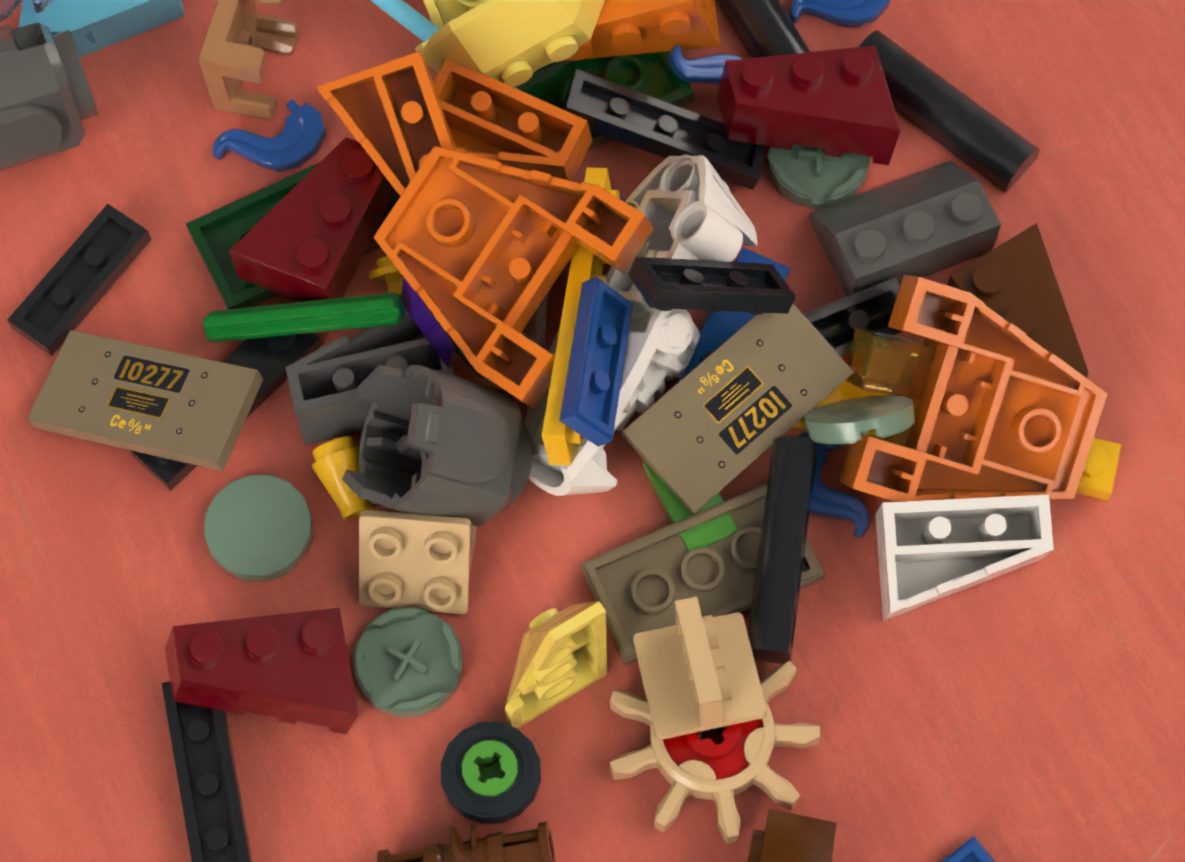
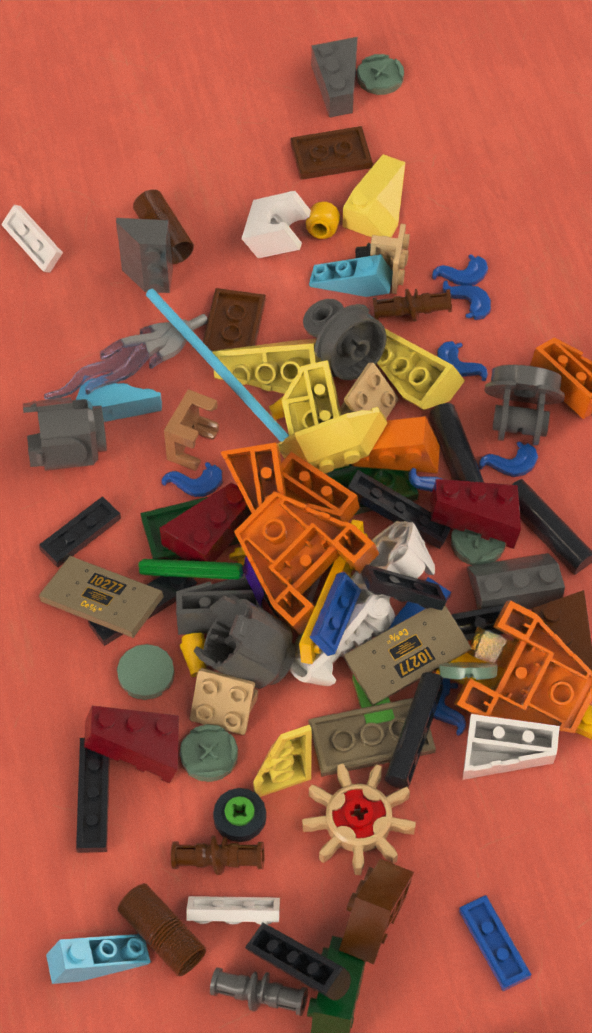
camera: 10 degrees right, 10 degrees down
(699, 672) = (357, 781): tan bracket -> none

